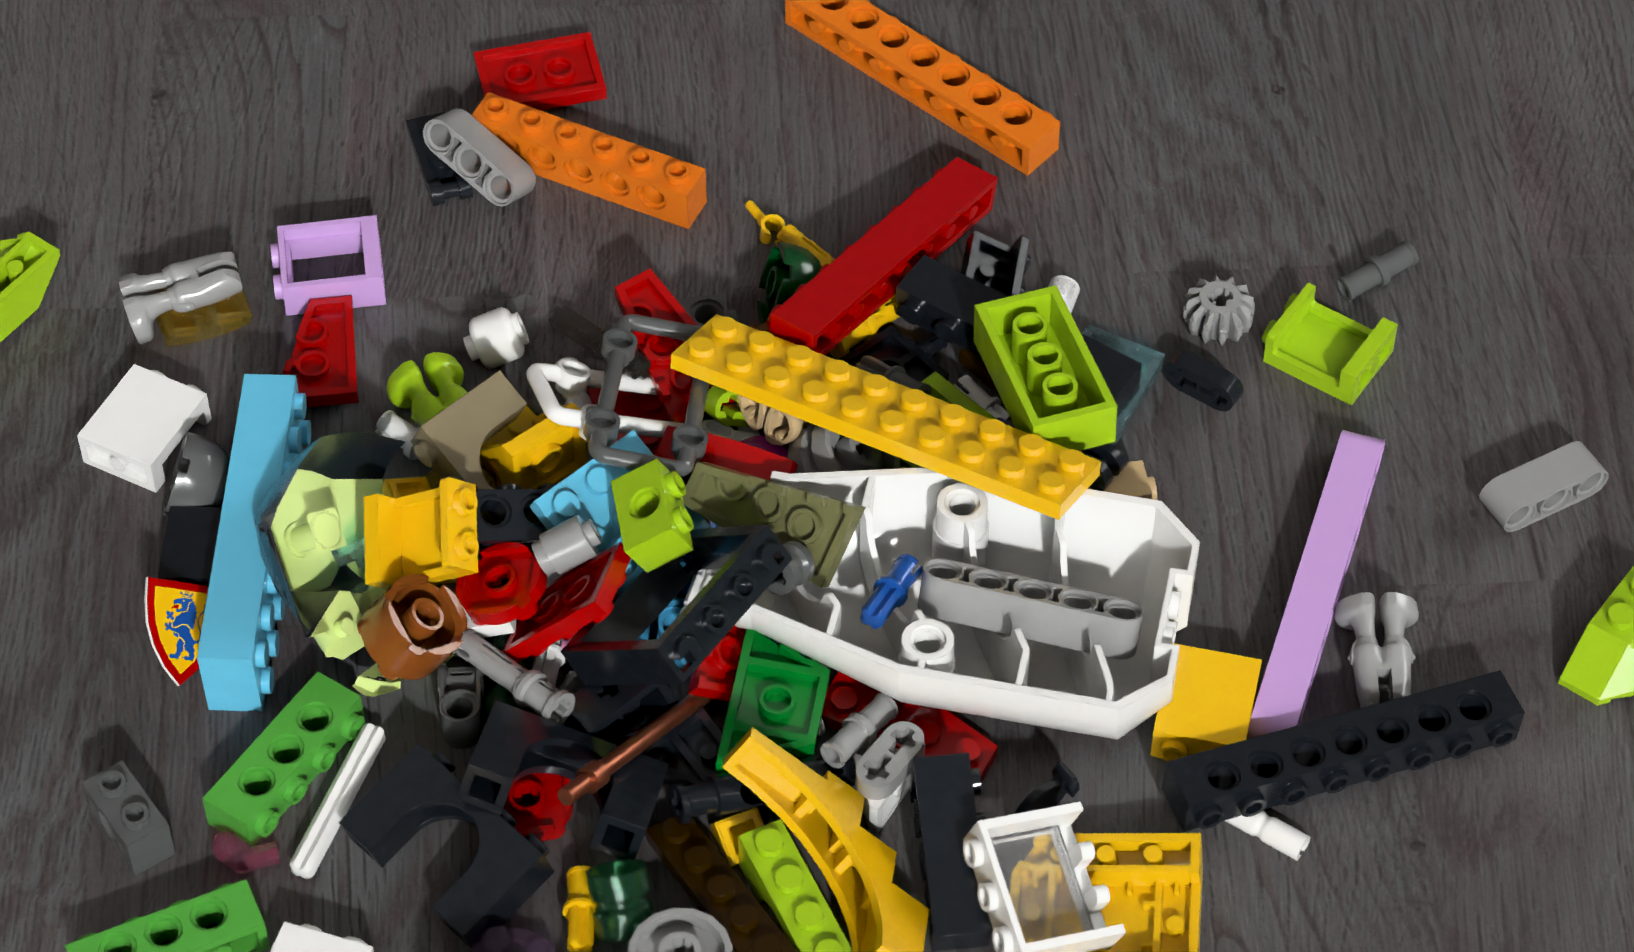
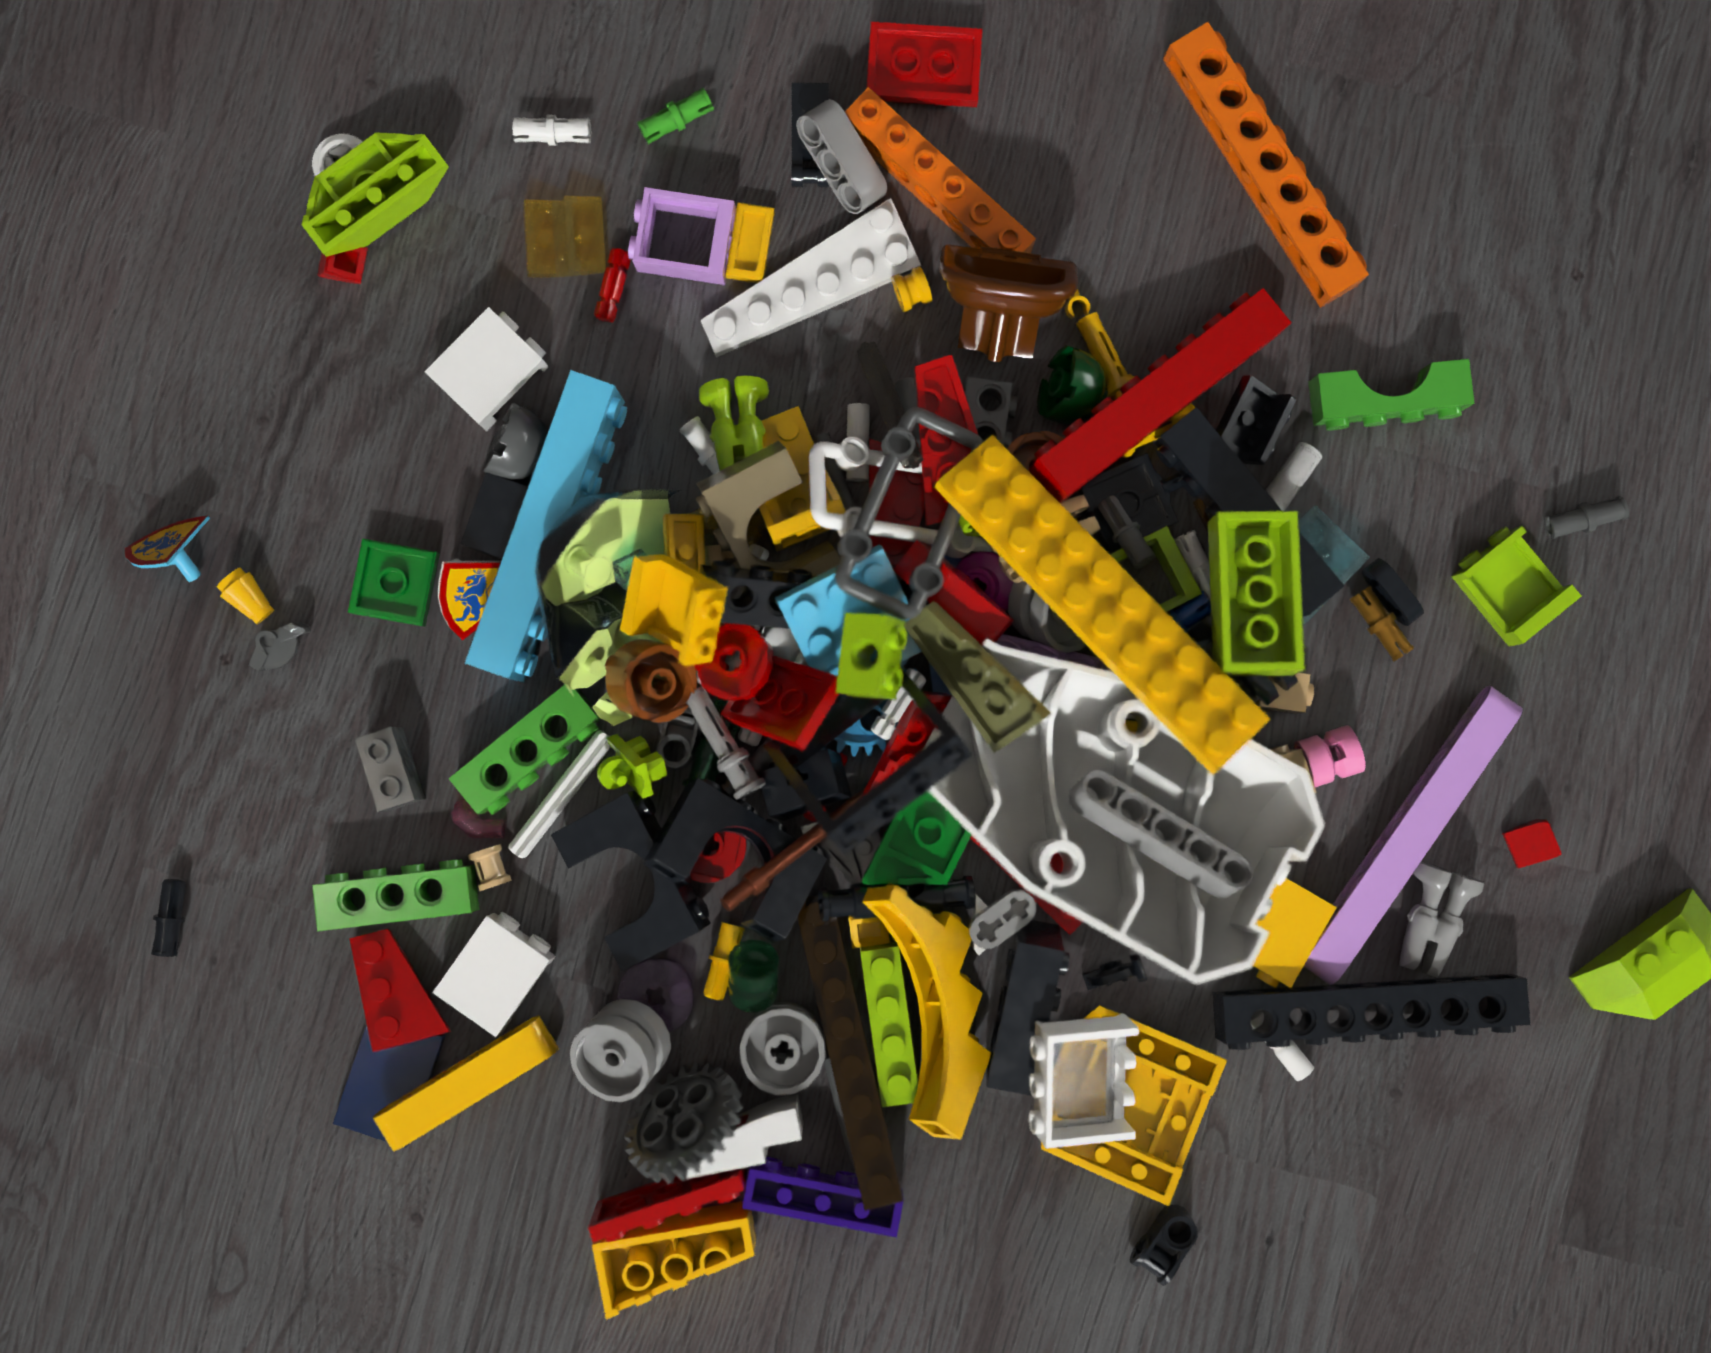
camera: 15 degrees right, 35 degrees up
(86, 646) = (393, 582): none -> green plate
(160, 216) = (551, 130): none -> white pin
(188, 286) = (556, 236): light grey piece -> none
(263, 329) = (612, 285): none -> red axle
(273, 889) = (489, 867): none -> tan bush
(290, 175) = (675, 115): none -> bright green pin
(326, 353) = (655, 337): red wing -> none
(403, 261) = (750, 242): none -> yellow tile
(415, 725) = (631, 765): none -> lime hips
(496, 337) = (806, 362): white head -> none
(500, 263) = (829, 274): none -> white wing
(567, 545) = (793, 655): light grey brick -> none
(589, 252) = (911, 289): none -> yellow wheel
(689, 219) = (1004, 296): none -> reddish brown piece
(796, 572) = (974, 731): dark grey wheel -> none
(859, 730) = (980, 883): light grey pin -> none
(890, 591) = (1050, 780): blue axle -> none
(1084, 234) = (1344, 398): none -> bright green arch
(1204, 411) = (1382, 623): none -> pearl gold pin
(1212, 525) = (1338, 746): none -> bright pink wheel
(1218, 310) = (1444, 513): light grey gear -> none
(1456, 563) = (1532, 843): none -> red slope
(1543, 486) = (1637, 791): light grey beam -> none

